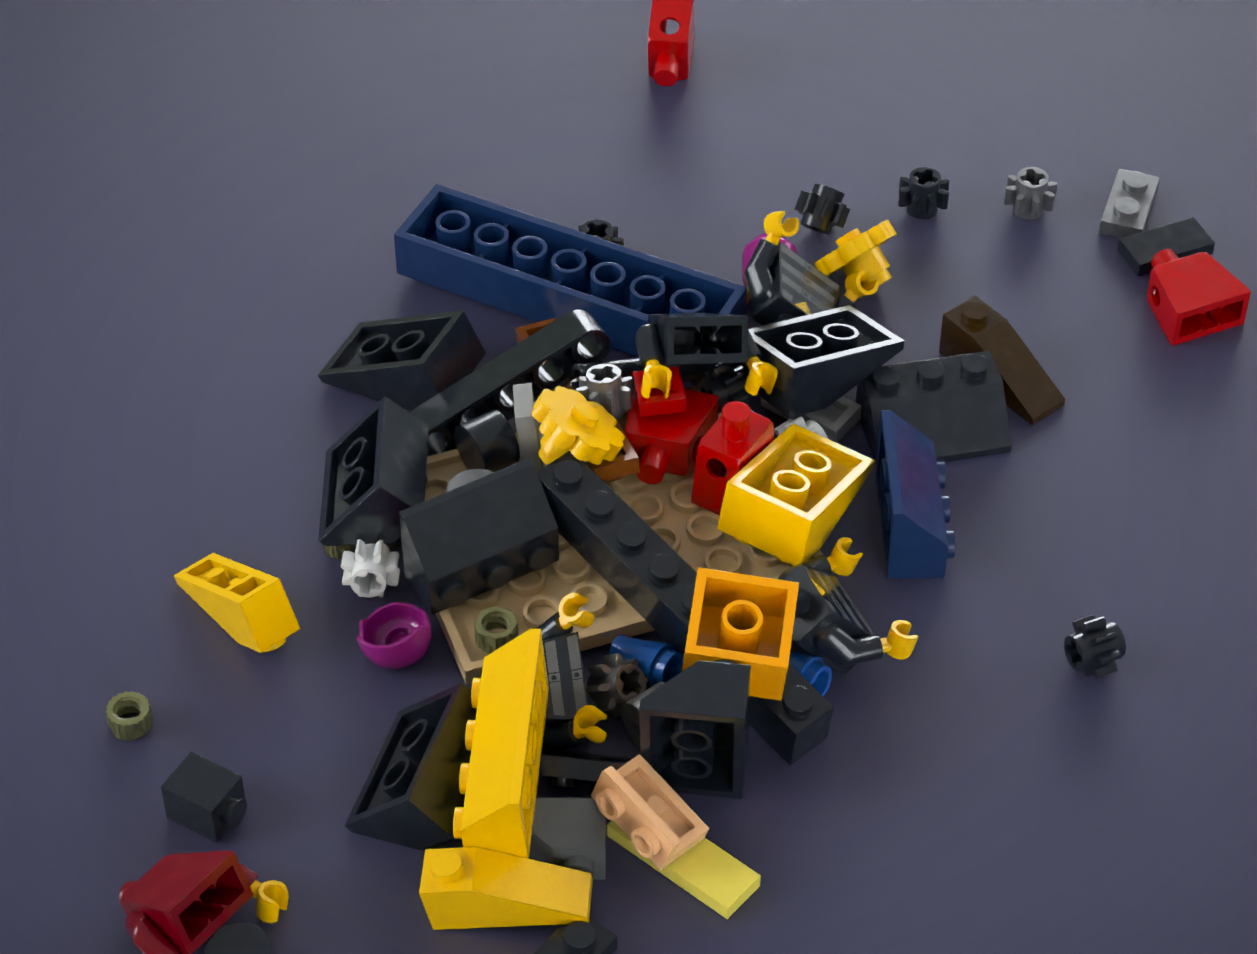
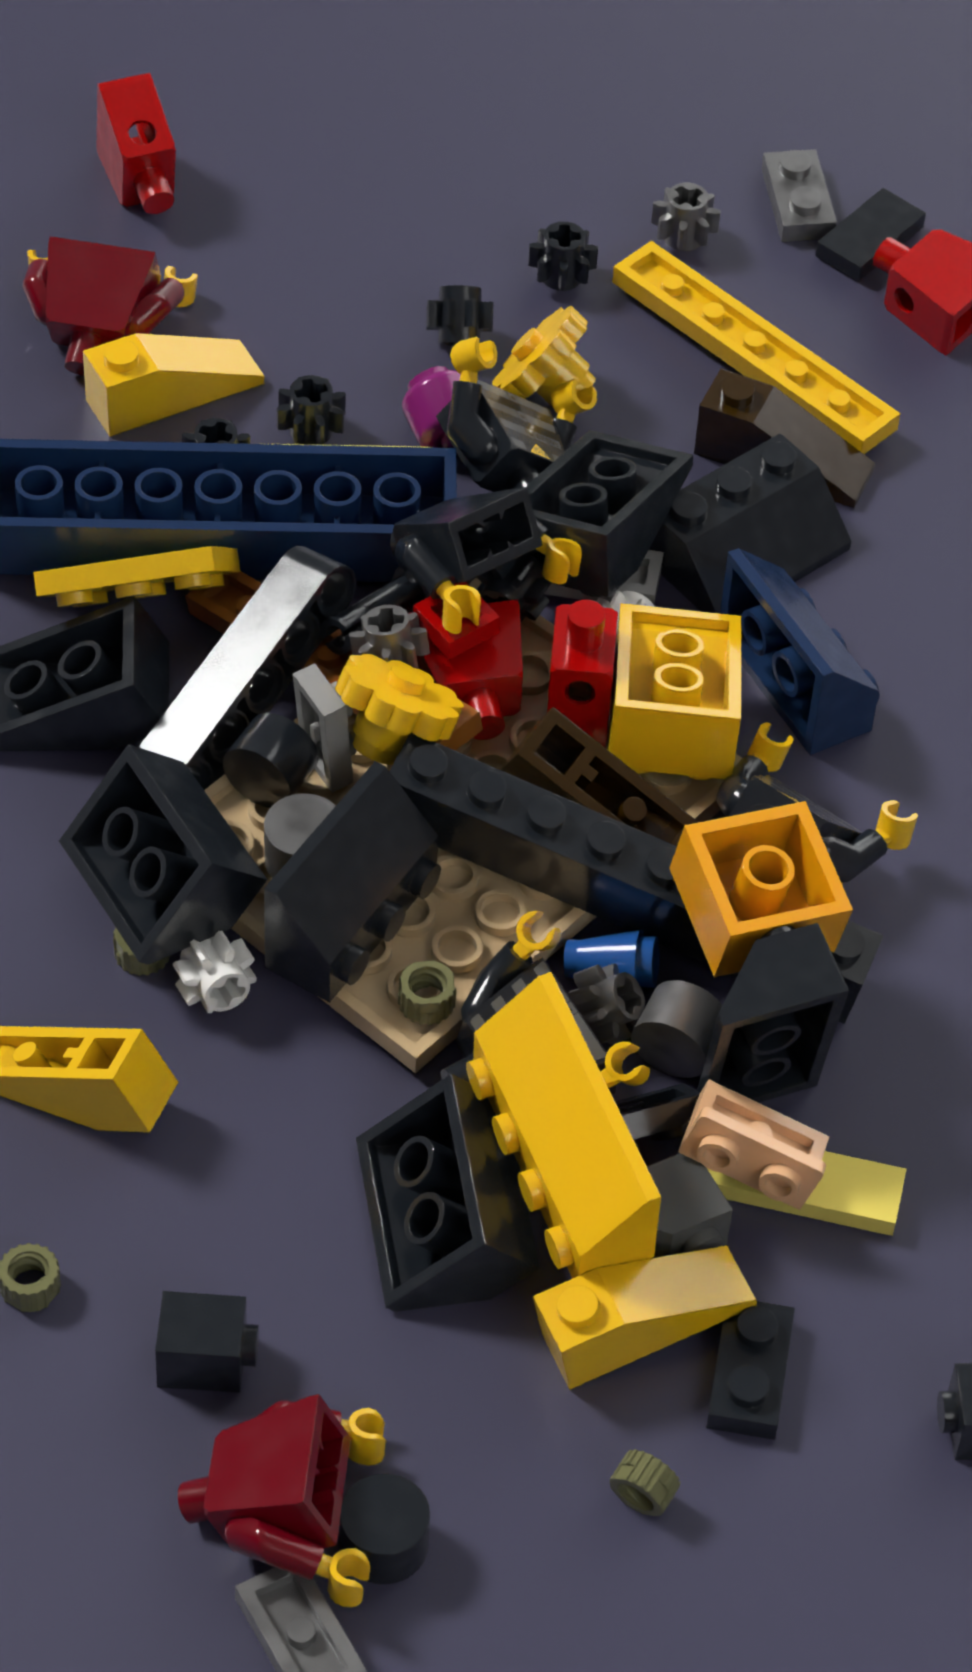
camera: 30 degrees left, 5 degrees up
(395, 635) = (300, 1044): magenta hair -> none
(486, 301) = (137, 576): none -> yellow plate
(586, 126) = (100, 294): none -> dark red torso
(594, 186) = (161, 376): none -> yellow slope
(679, 238) = (311, 410): none -> black gear
(685, 524) = (580, 769): none -> dark brown slope
(1025, 296) = (754, 345): none -> yellow plate

